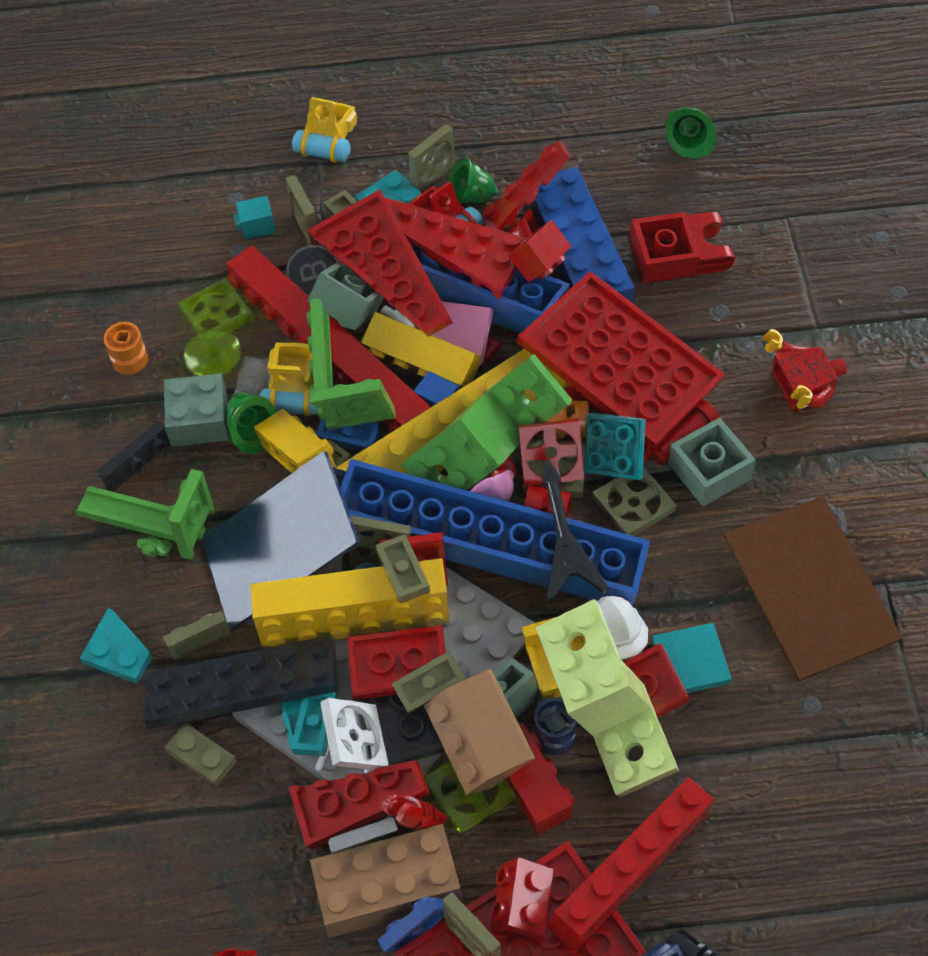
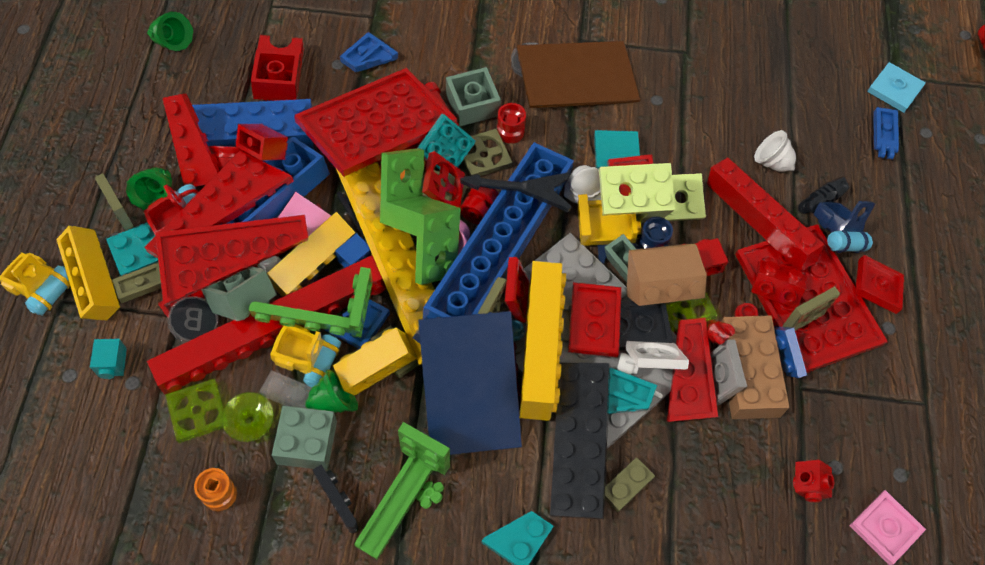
camera: 85 degrees left, 5 degrees up
(197, 635) = (528, 479): olive plate -> none
(301, 208) = (116, 308): olive piece -> none
(347, 165) = (87, 273): none -> yellow brick
(402, 568) = (541, 284): olive plate -> none
(428, 681) = (624, 296): olive plate -> none
(472, 871) = (746, 309): none -> red plate
(685, 516) = (511, 122): none -> red wheel
(743, 333) = (368, 53): none -> blue wing
(757, 882) = (776, 152): none -> white piece
(803, 372) = (417, 29): red torso -> none

